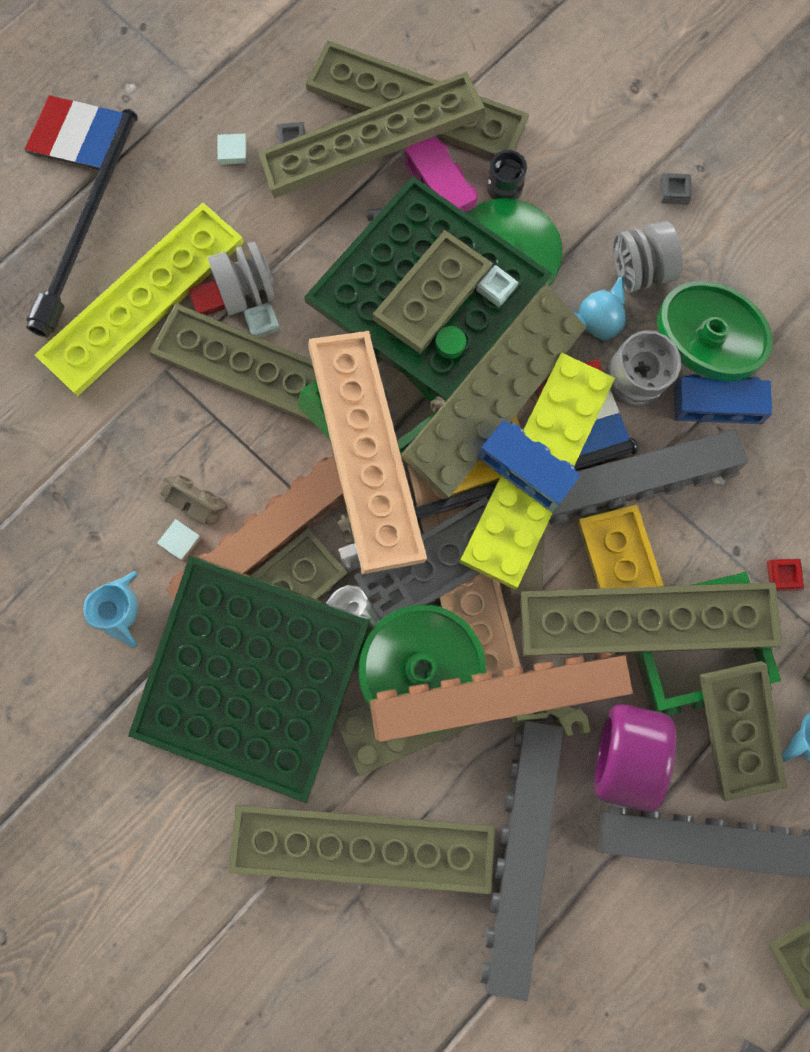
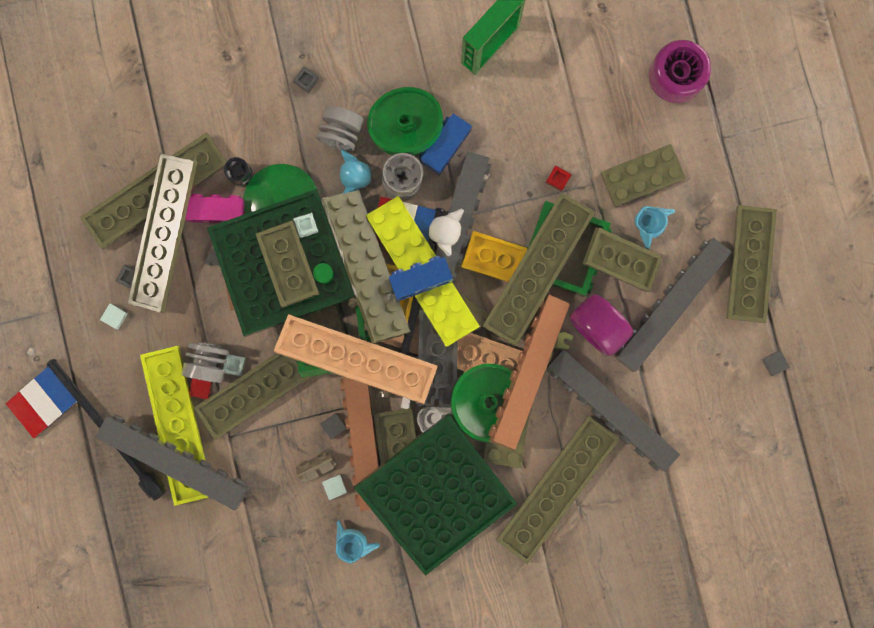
camera: 55 degrees left, 10 degrees up
(89, 319) = (172, 462): none -> dark grey brick
(259, 488) = (333, 425): none -> dark grey tile
(615, 464) = (446, 230): none -> white piece

